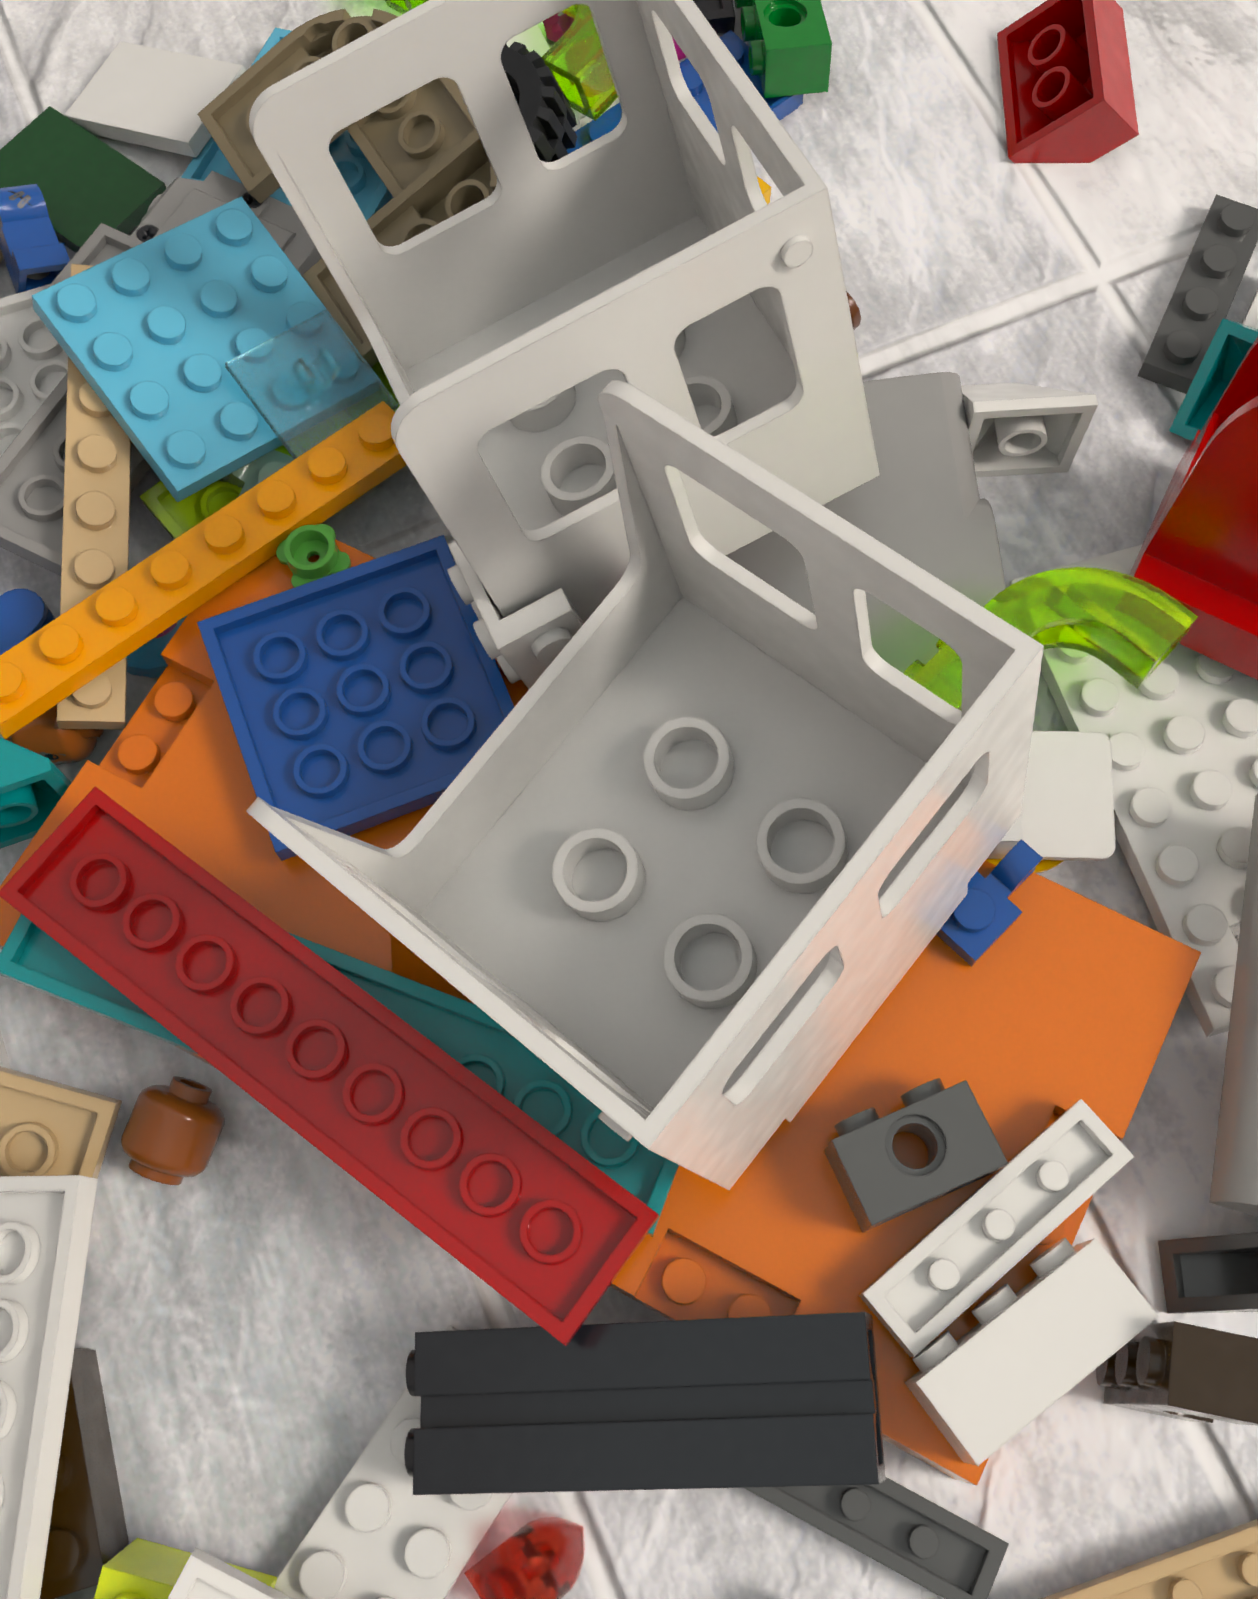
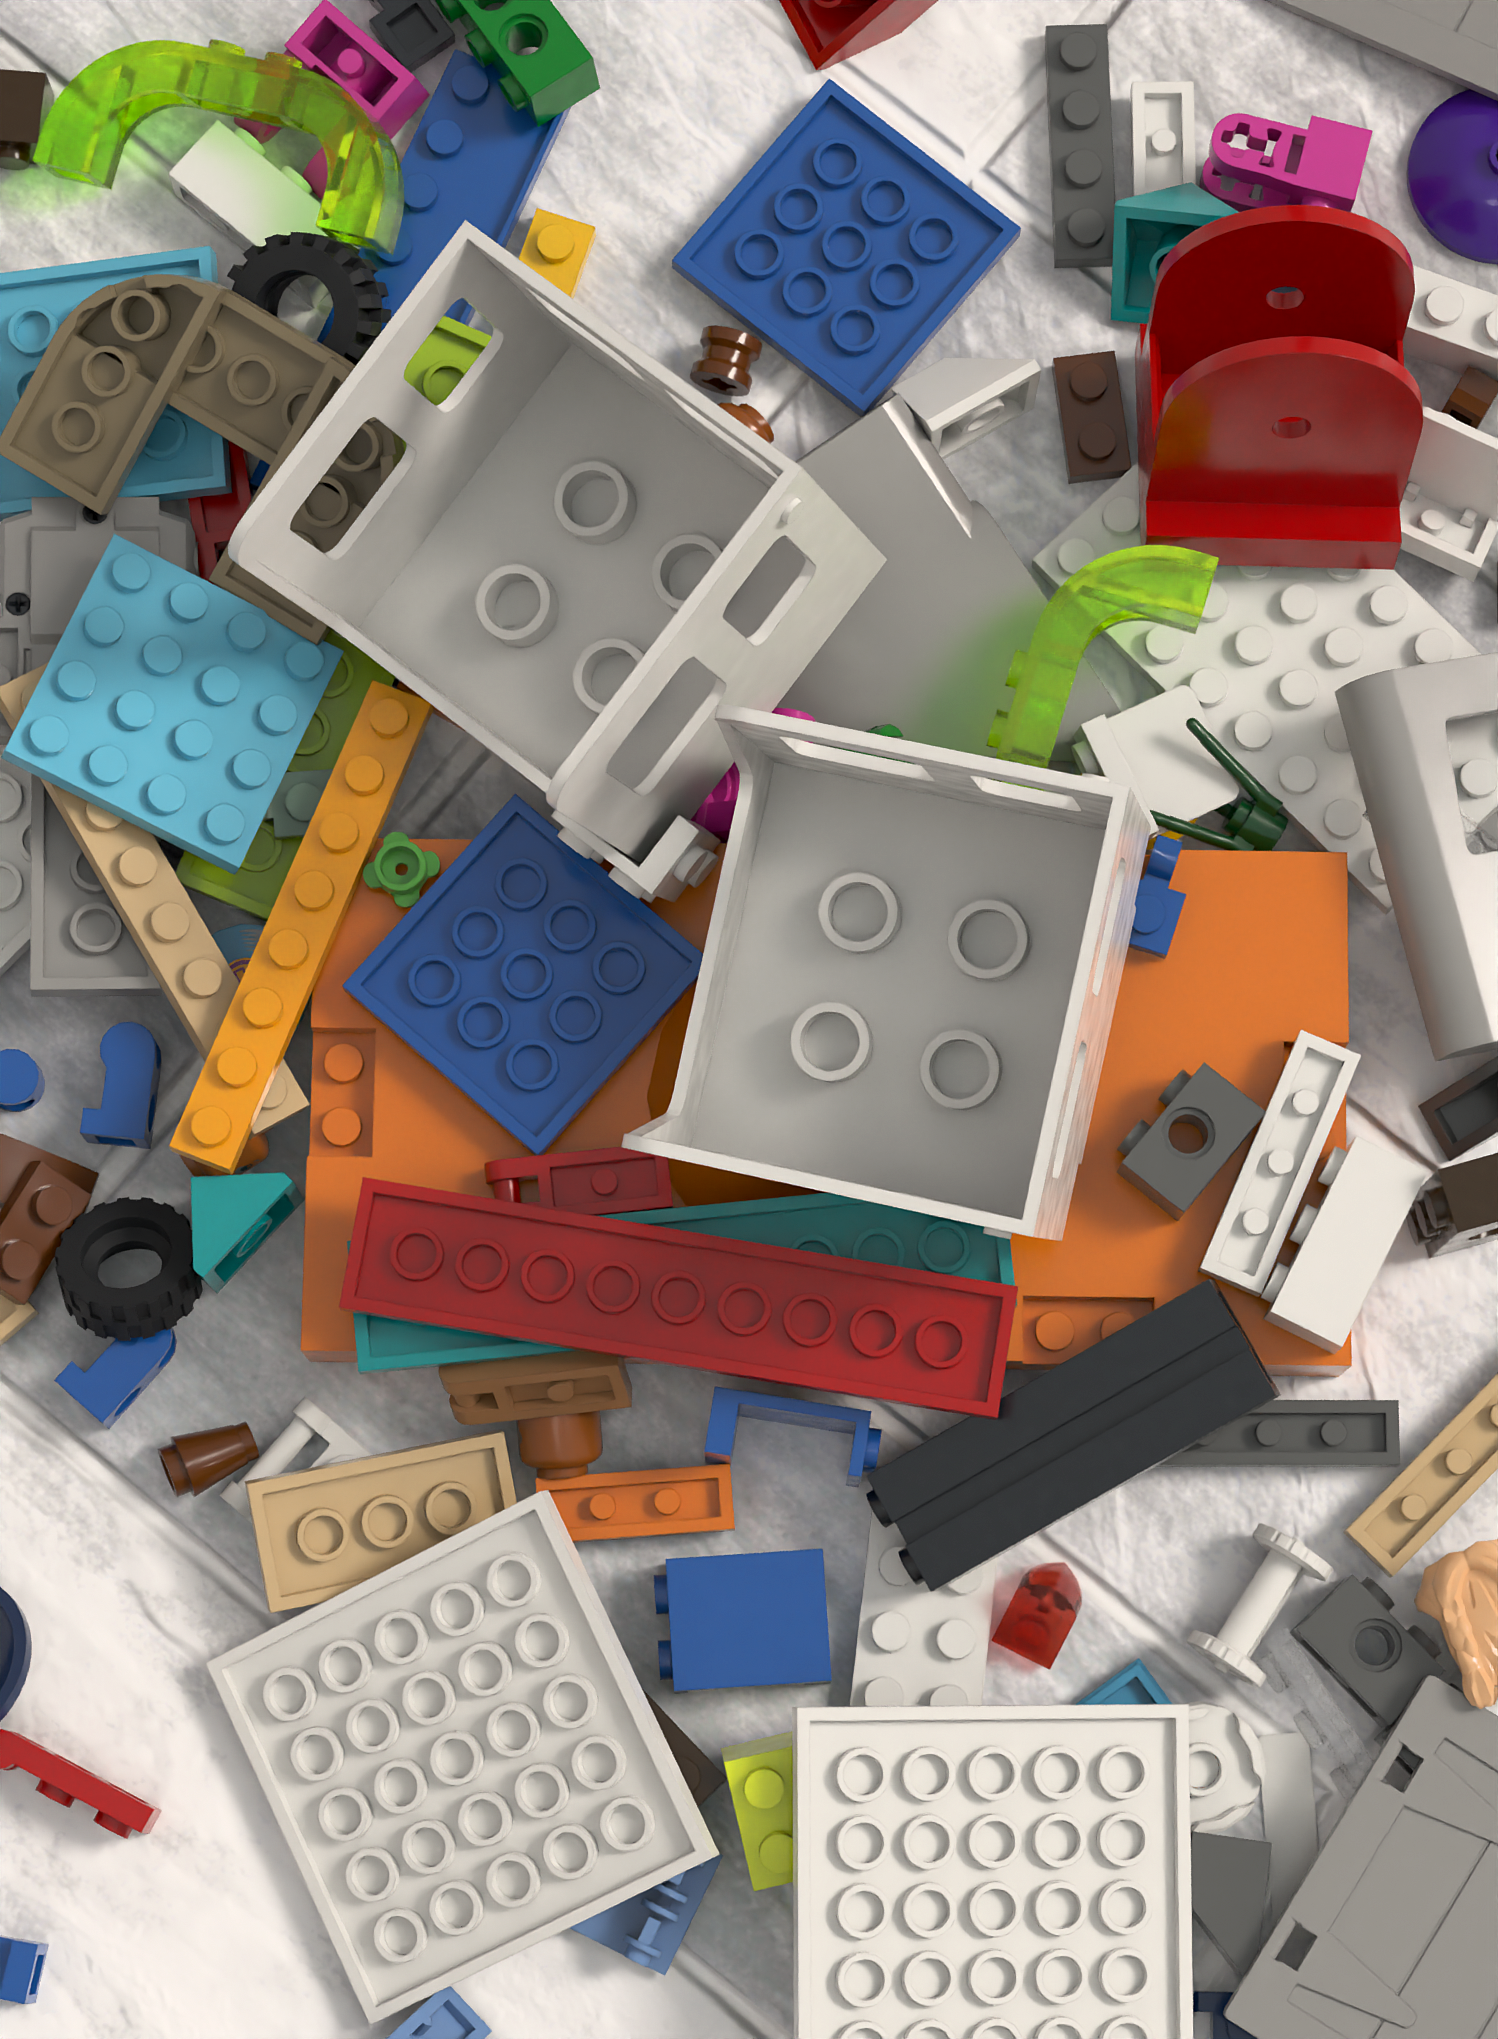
camera: 30 degrees left, 10 degrees up
(157, 1074) = (536, 1387): none -> medium nougat plate
(203, 1240) = (644, 1502): none -> orange plate
(232, 1420) = (744, 1620): none -> blue panel
(302, 901) = (587, 1180): none -> red plate
(308, 382) = (295, 697): clear light blue piece -> none
(321, 1201) = (732, 1403): none -> blue panel
(973, 280) = (846, 248): none -> blue plate
(1108, 884) = (1251, 824): none -> dark green plant
(1116, 495) = (1091, 417): none -> reddish brown plate

